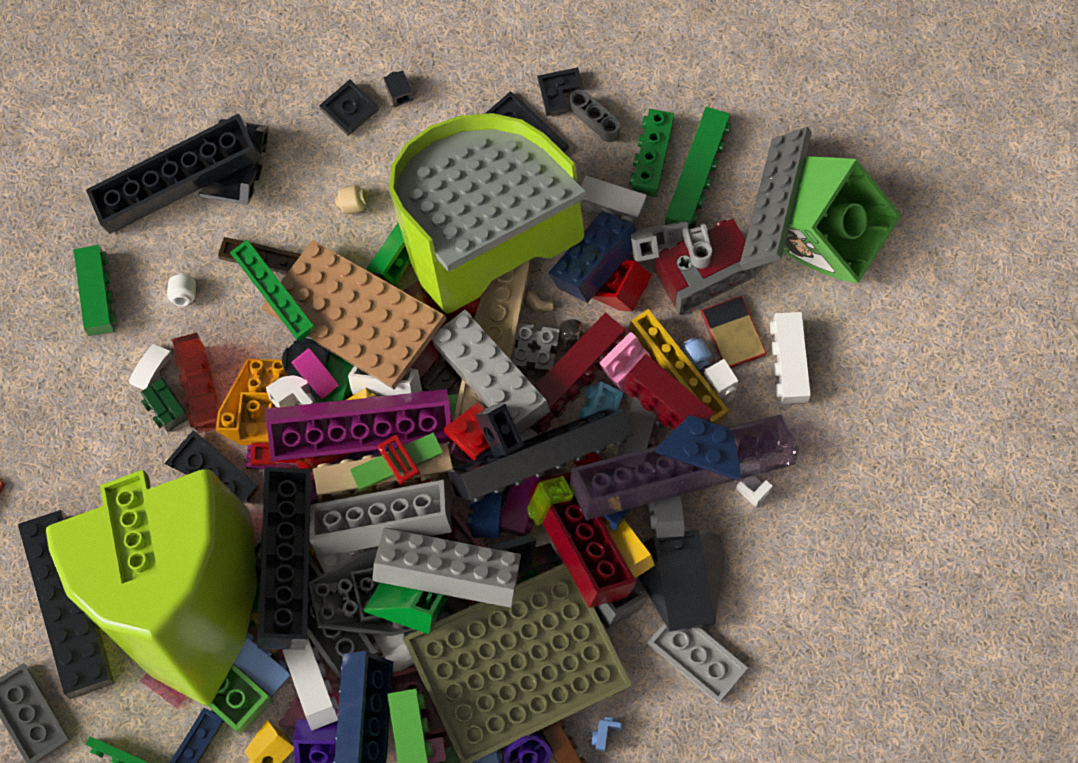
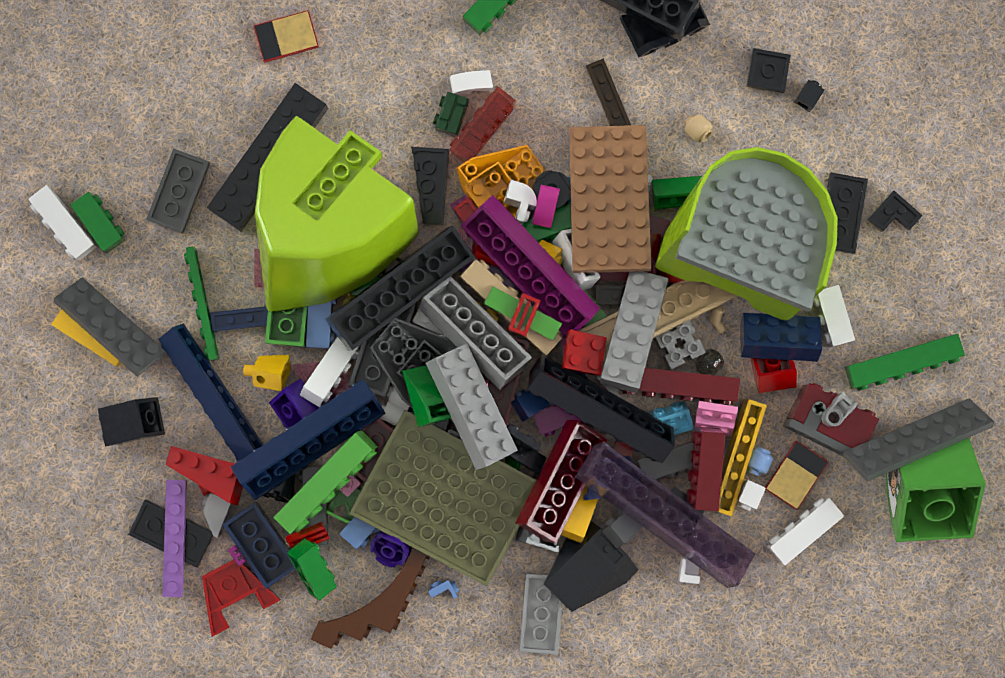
camera: 45 degrees right, 15 degrees up
(181, 289) = (543, 59): white head -> none
(273, 291) = (585, 128): green plate -> none
(499, 429) = (593, 372): black brick -> none
(546, 494) = (573, 437): clear neon green bracket -> none
(592, 107) = (898, 249): dark grey beam -> none
(652, 153) = (894, 319): green brick -> none
(652, 239) = (826, 371): light grey arch -> none
(703, 446) = (686, 521): dark blue wing -> none

